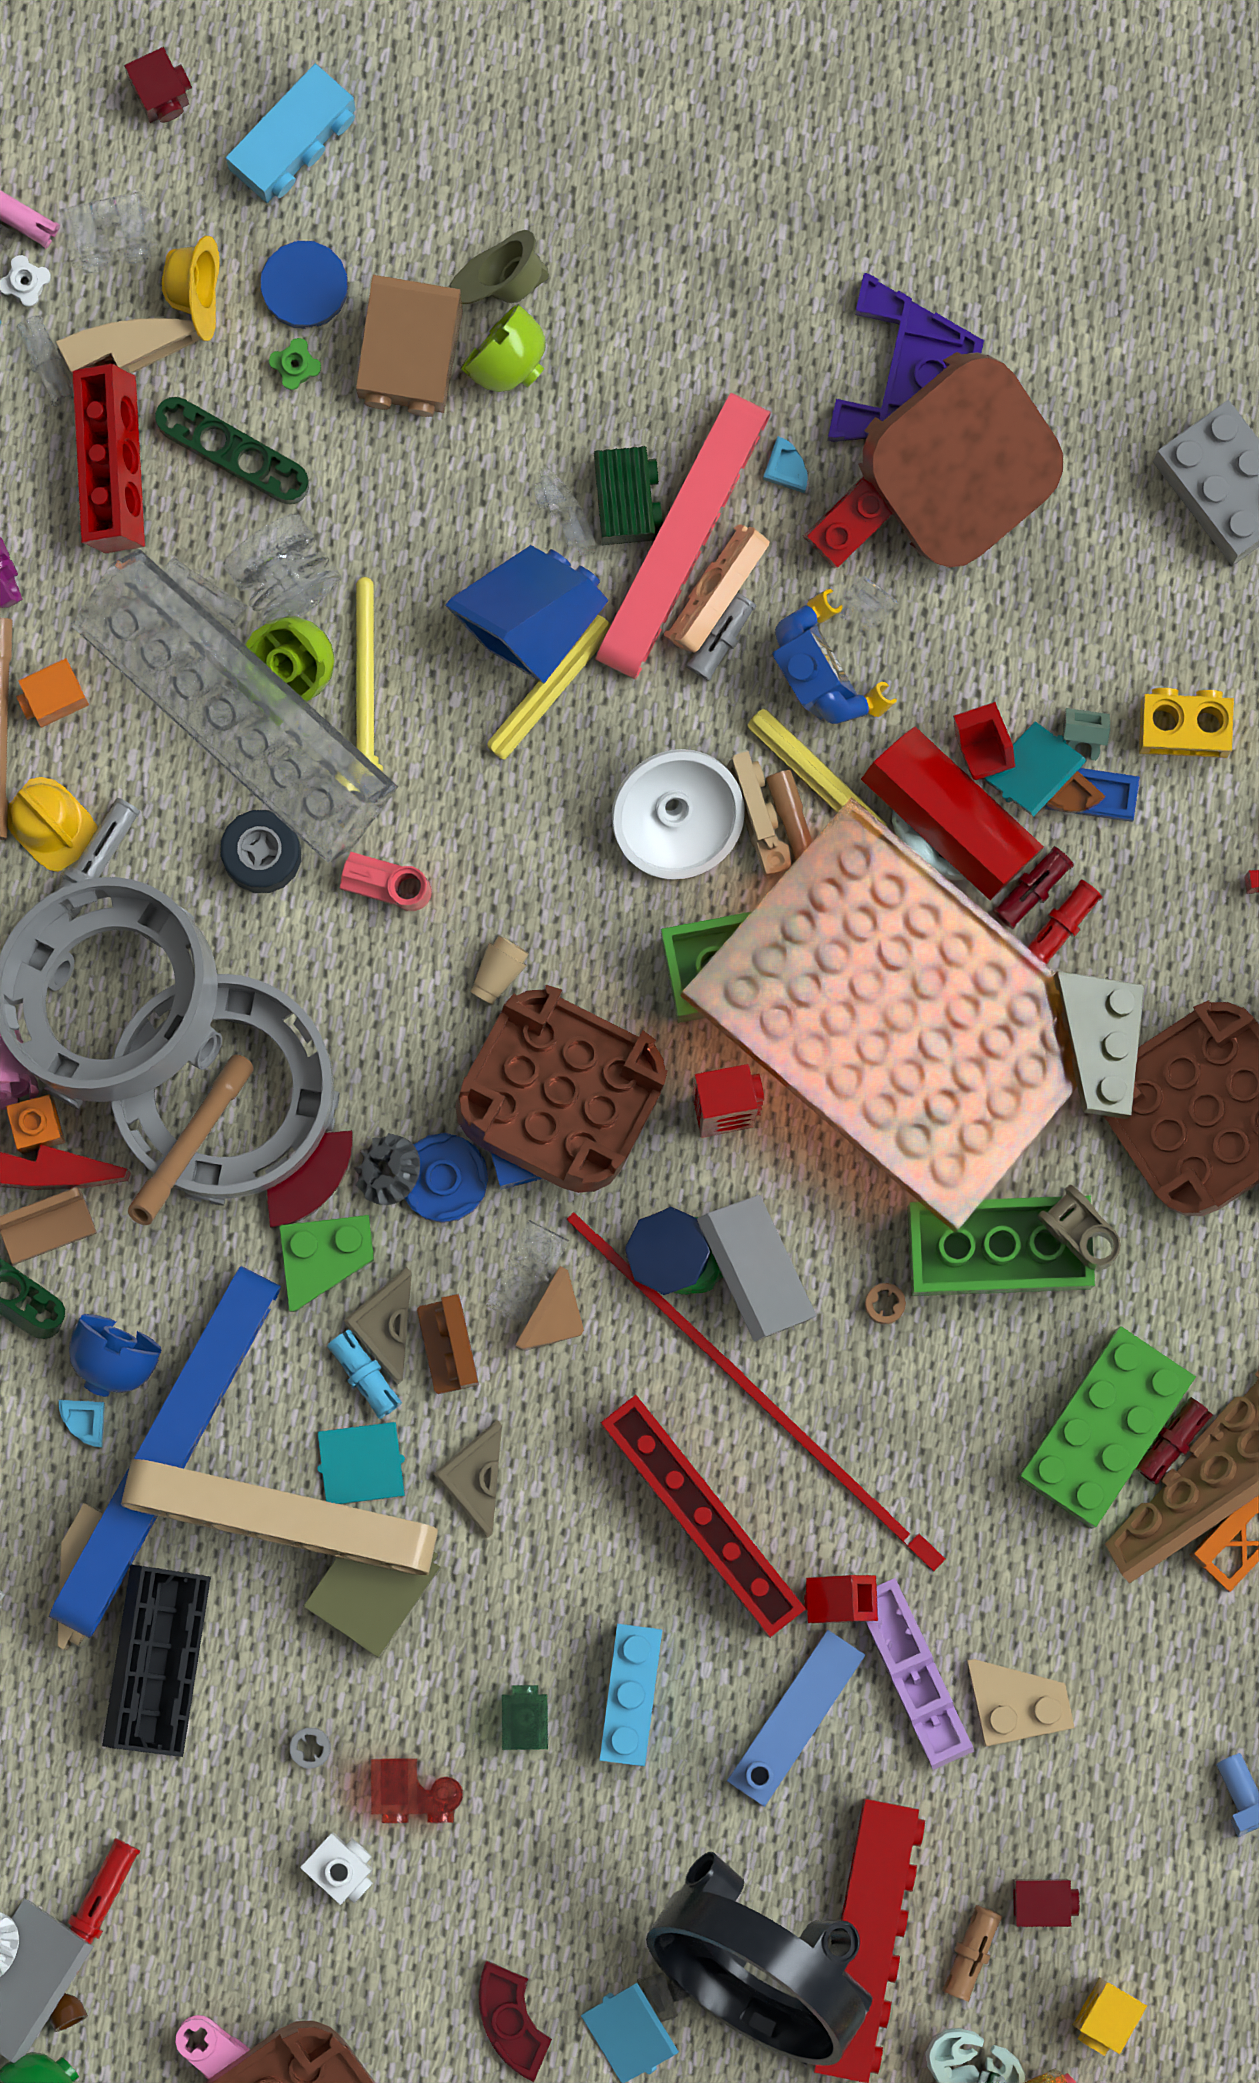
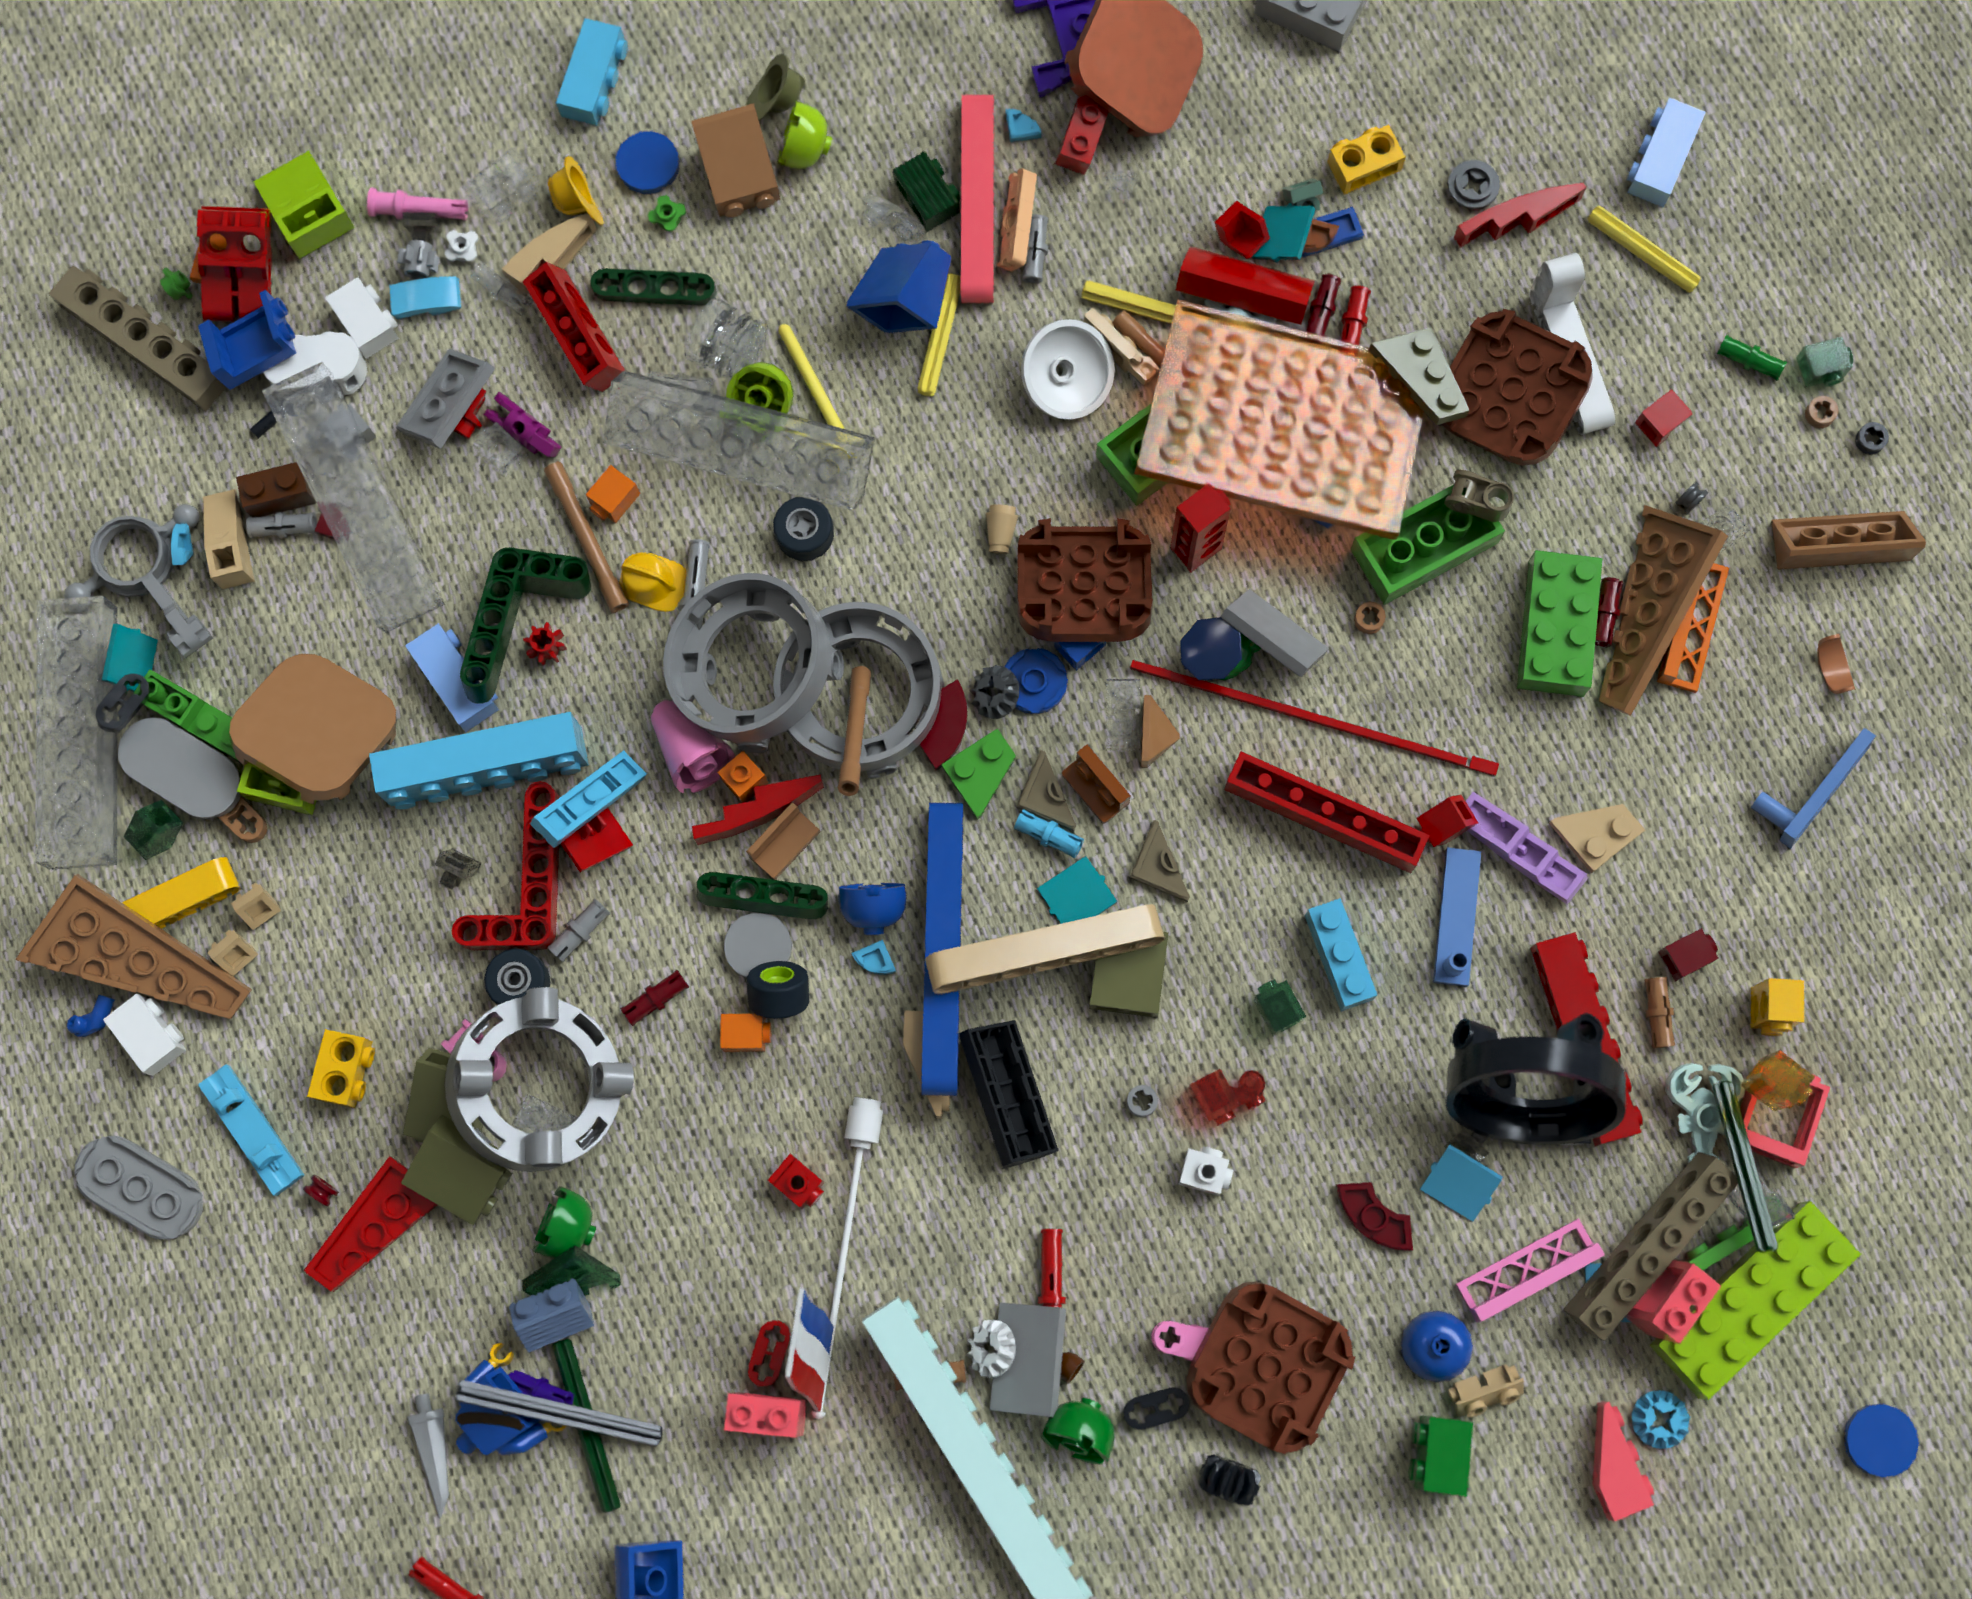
camera: 20 degrees left, 5 degrees down
(159, 85) = (488, 83): dark red brick -> none
(382, 881) = (893, 509): coral piece -> none
(816, 671) = (1110, 237): blue torso -> none

